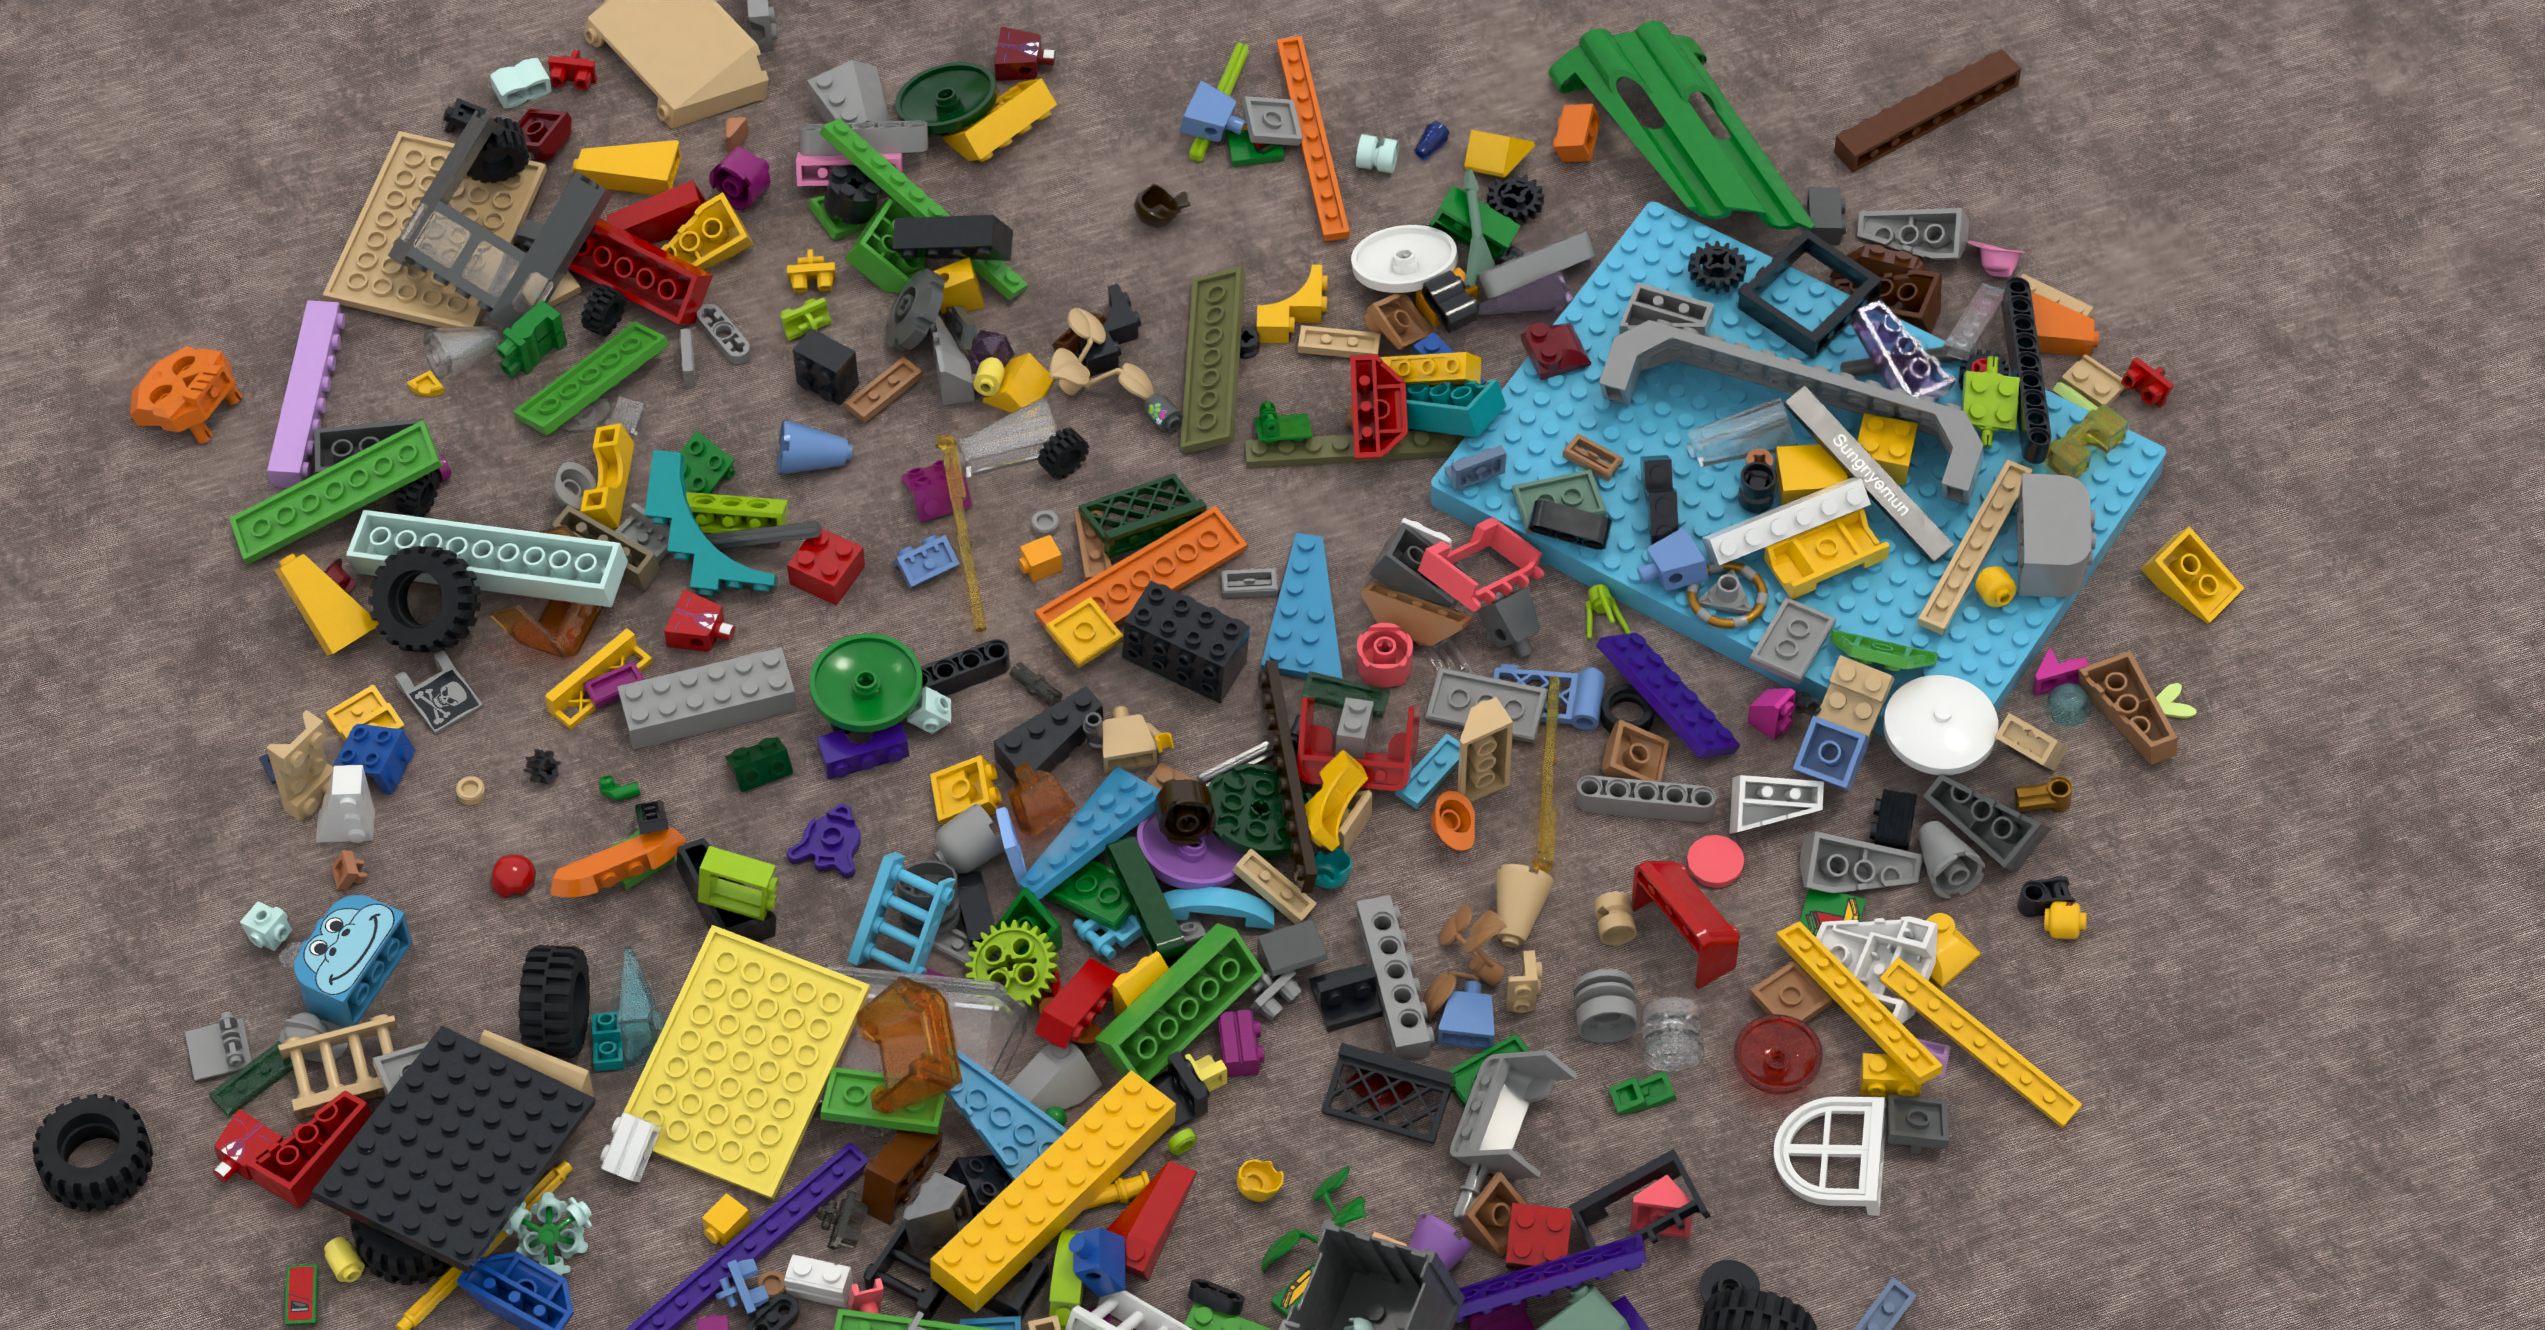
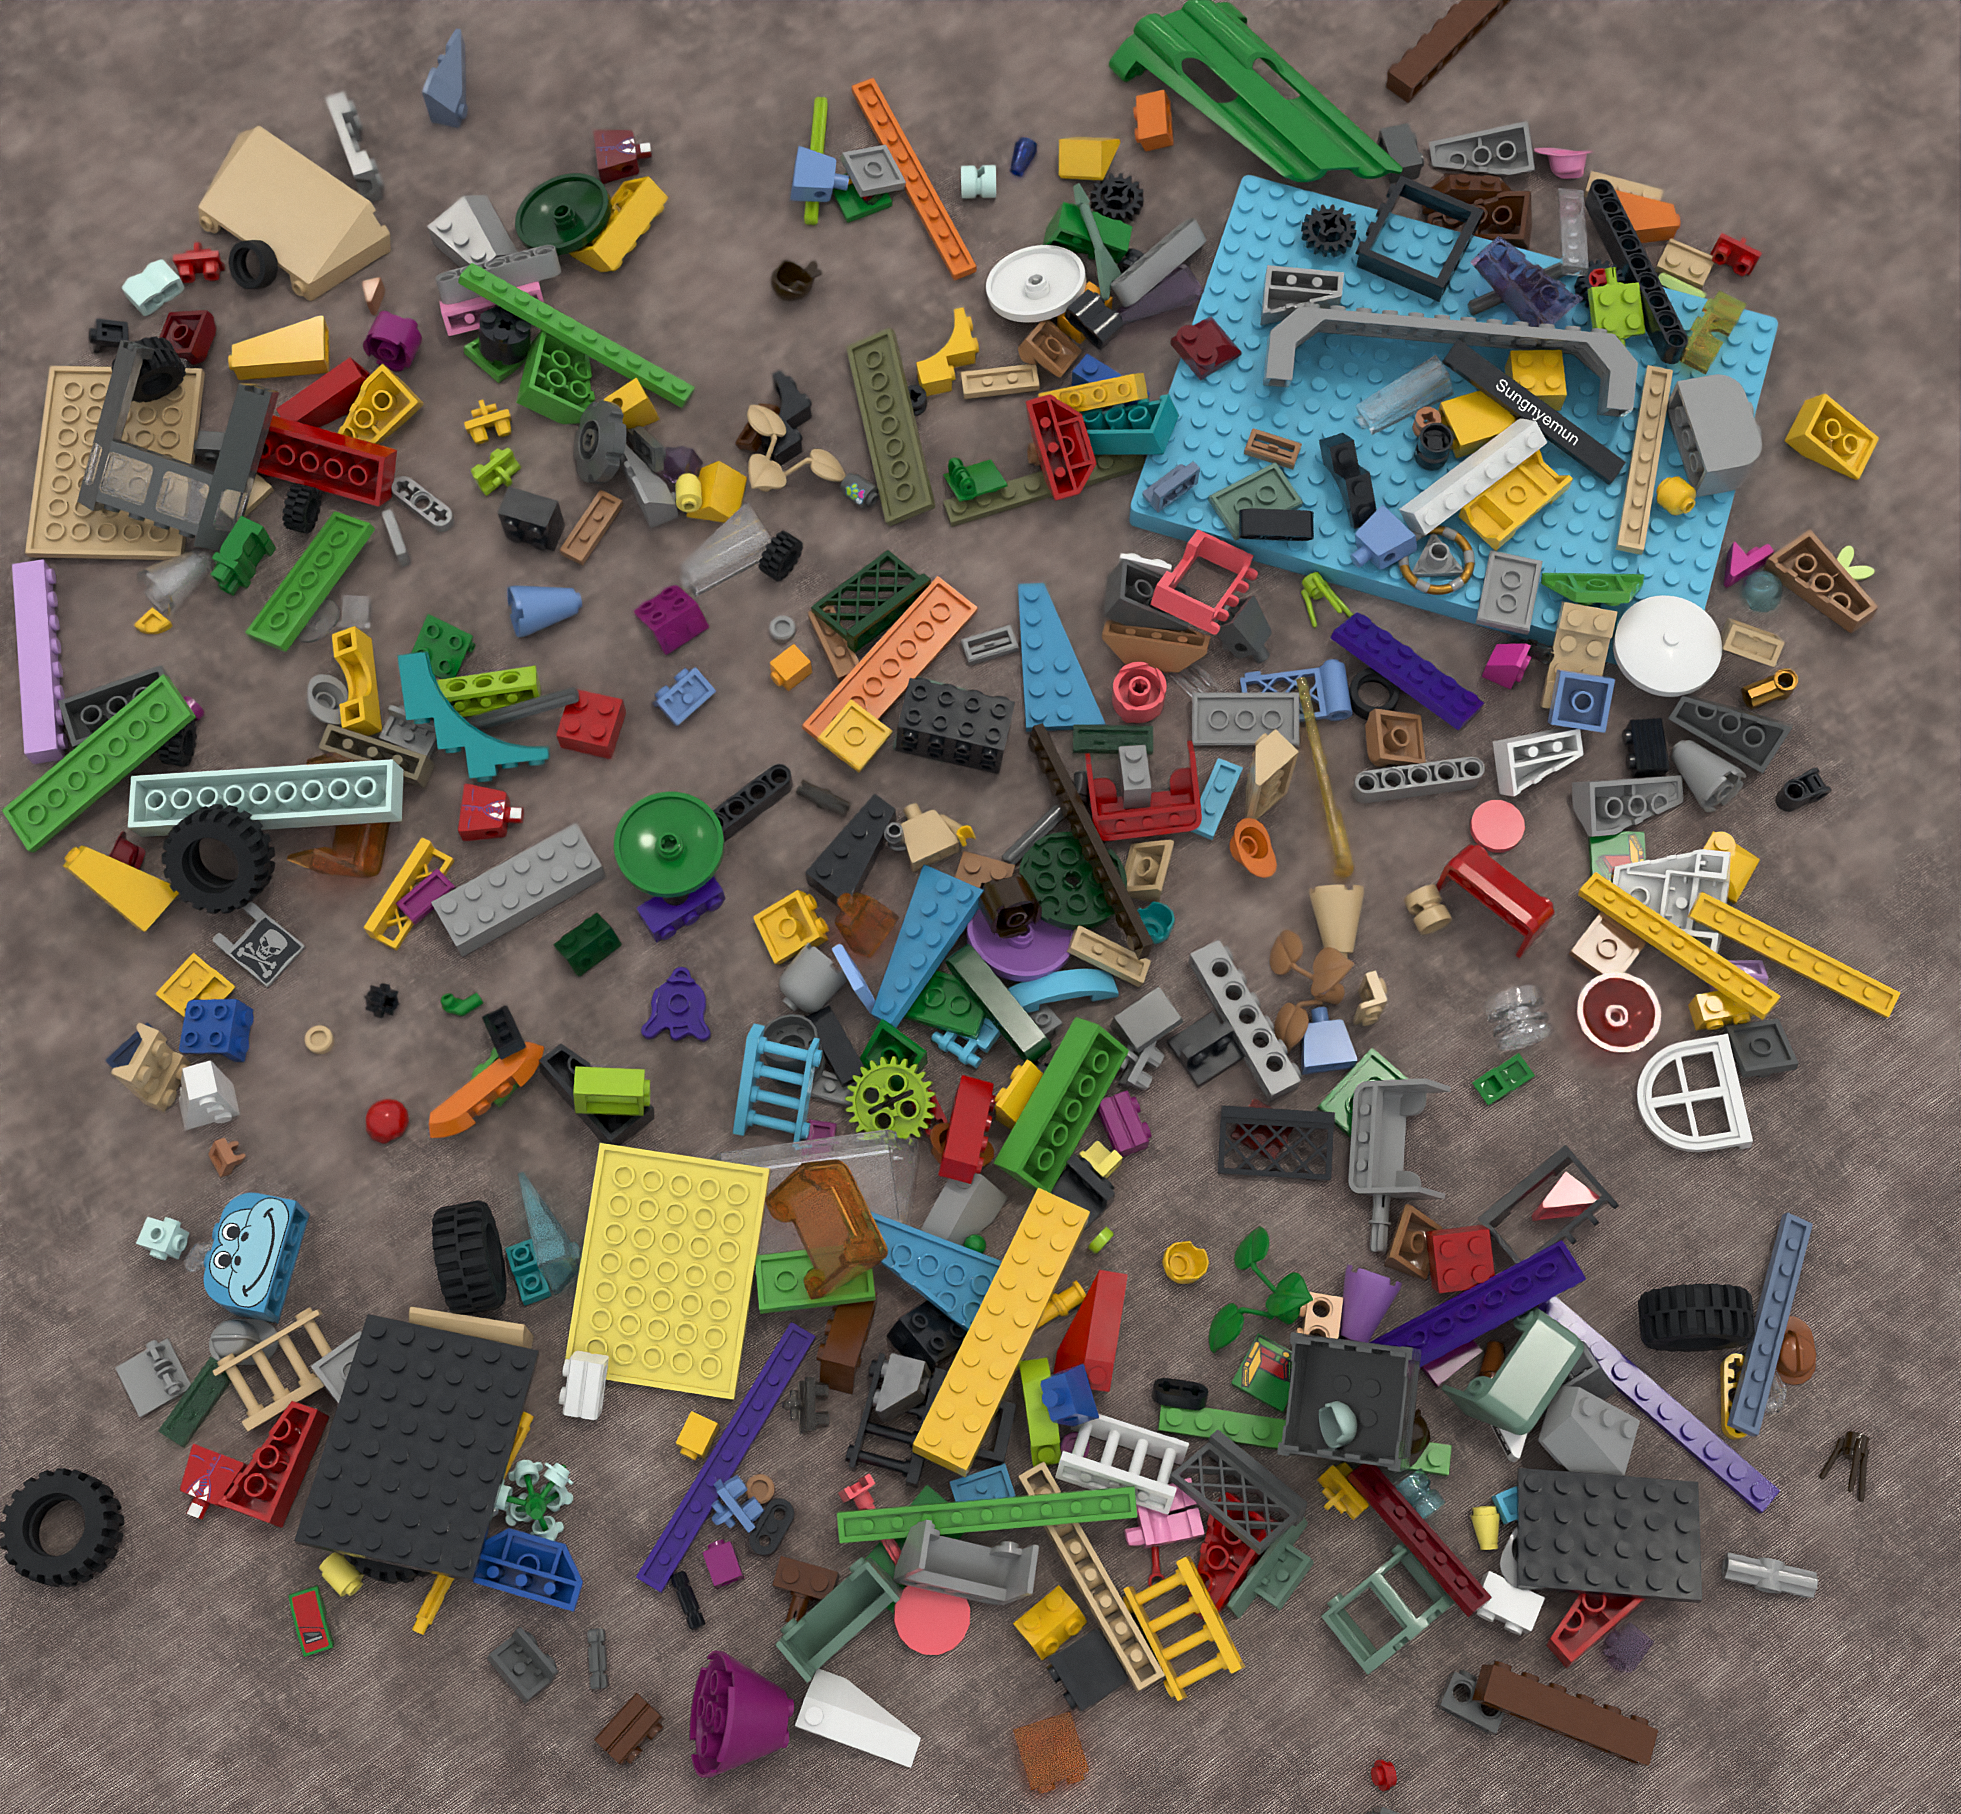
camera: 15 degrees left, 15 degrees up
(639, 82) = (239, 269): none -> black tyre
(818, 1281) = (804, 1477): white brick -> none
(931, 711) = (737, 852): light aqua brick -> none
(947, 444) = (695, 623): clear yellow bar -> none
(953, 238) = (614, 361): black wedge -> none
(1325, 810) = (1143, 837): yellow arch -> none
(1605, 1006) = (1449, 1002): light grey wheel -> none
(1727, 1275) = (1655, 1253): black dish -> none
(2064, 920) = (1827, 810): yellow head -> none

